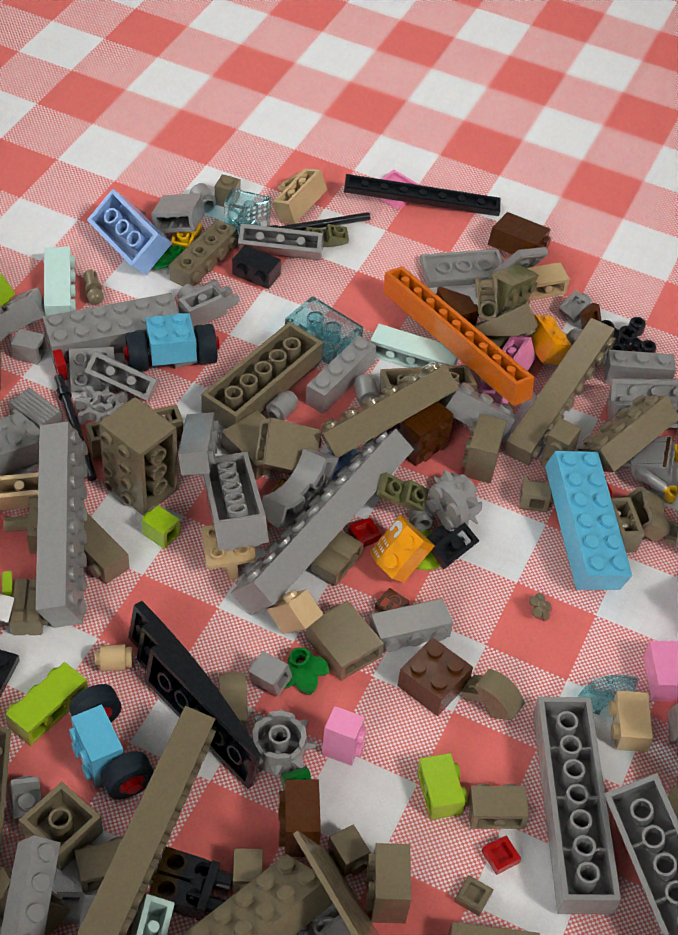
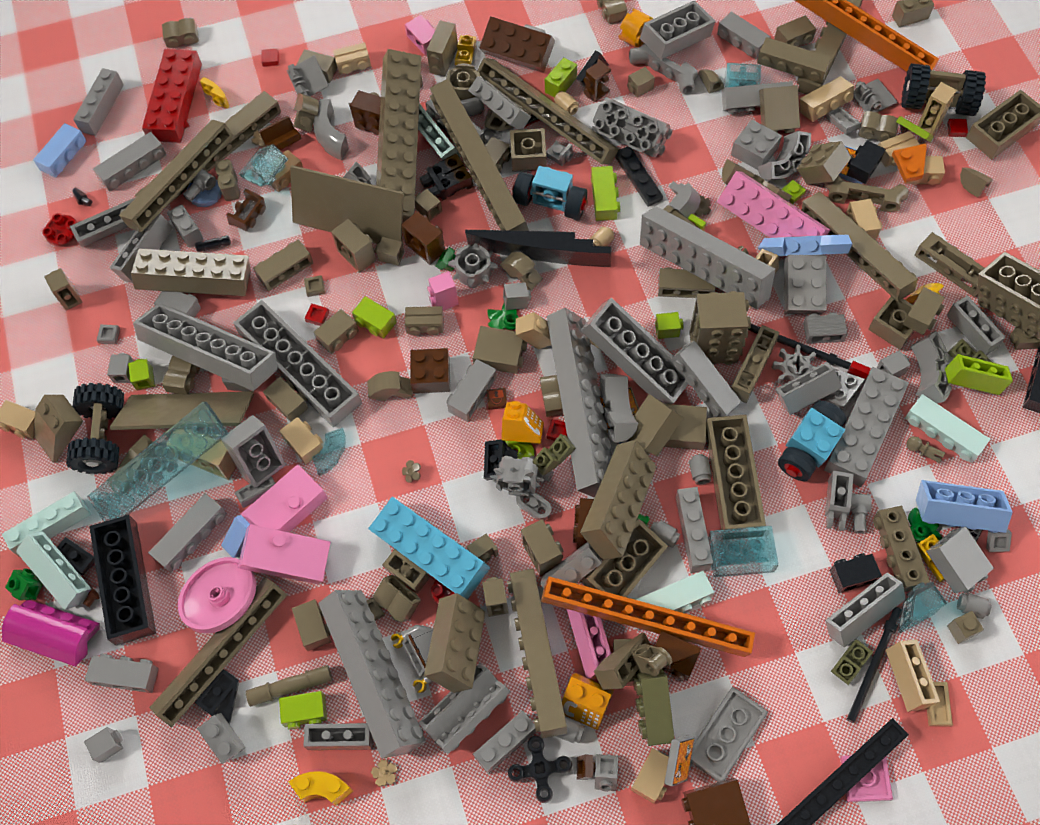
camera: 145 degrees right, 15 degrees up
(390, 735) = (424, 320): none -> dark tan brick
(618, 764) = (285, 399): none -> dark tan brick

